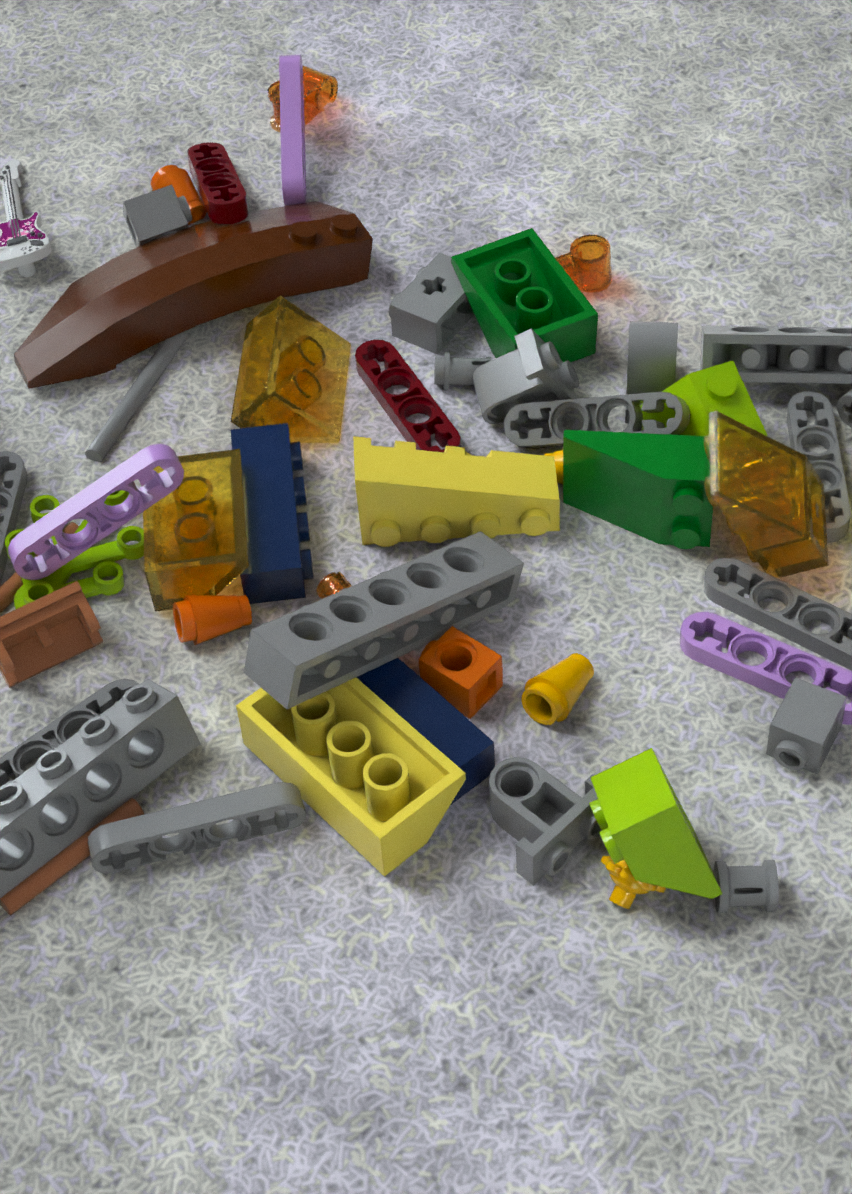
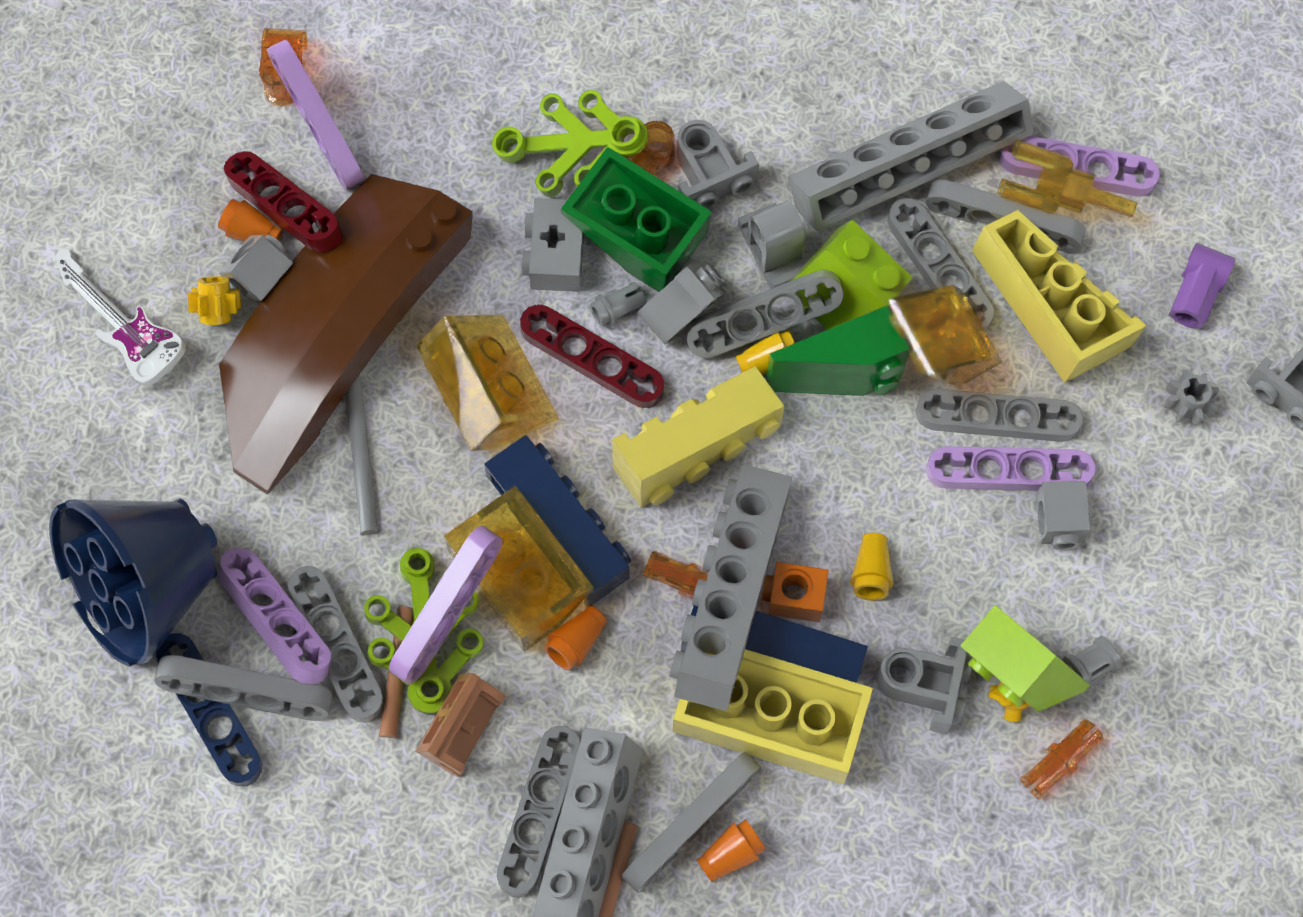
camera: 35 degrees left, 20 degrees up
(102, 231) = (214, 300): none -> yellow gear
(217, 876) = (731, 851): none -> orange cone
(557, 230) = (575, 143): none -> lime plant
(631, 294) = (712, 170): none -> light grey pin
(647, 967) = (1062, 758): none -> clear orange pin

